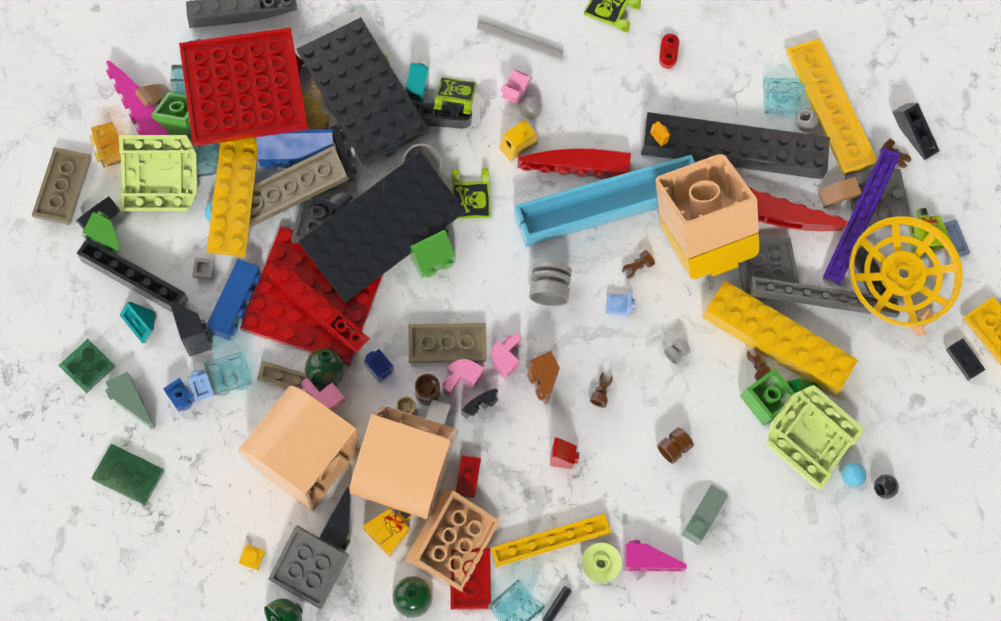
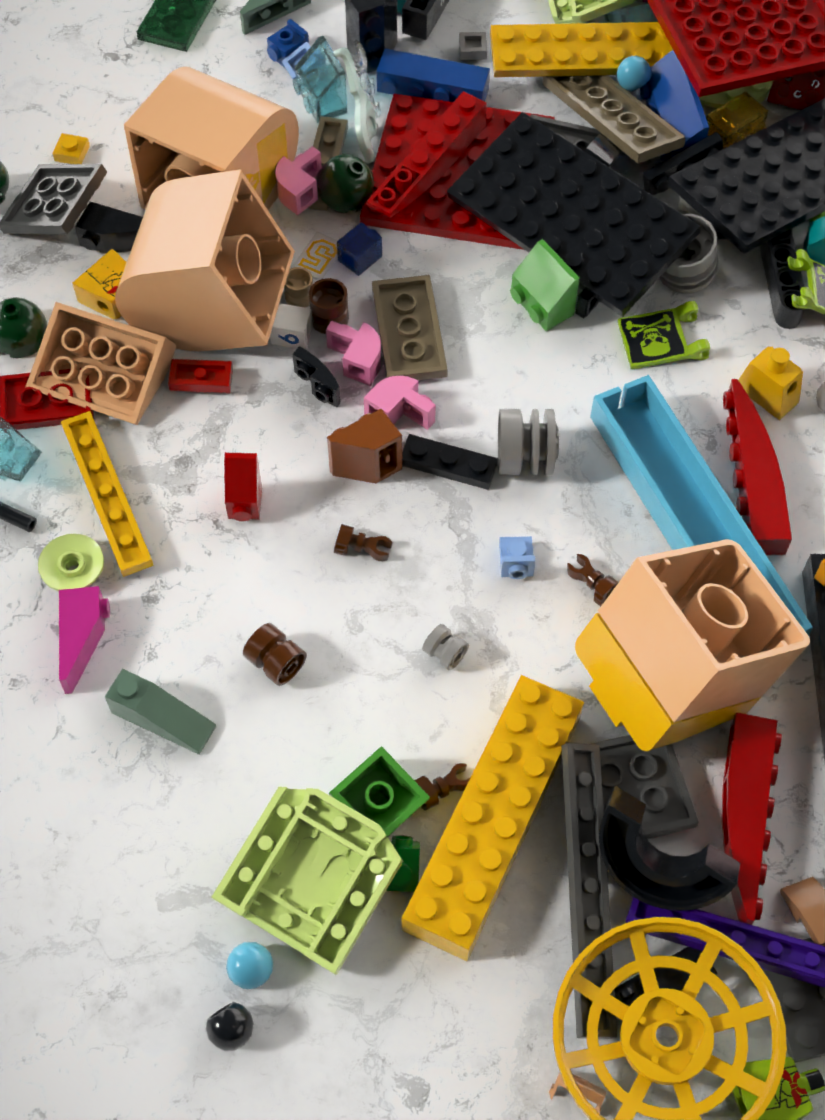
camera: 90 degrees right, 10 degrees down
(236, 345) = (363, 92): none -> light aqua piece
(264, 166) = (633, 73): none -> medium azure piece
(373, 393) = (318, 255): none -> white sticker
(548, 331) = (449, 461): none -> black plate
(822, 257) = (656, 876): none -> black brick

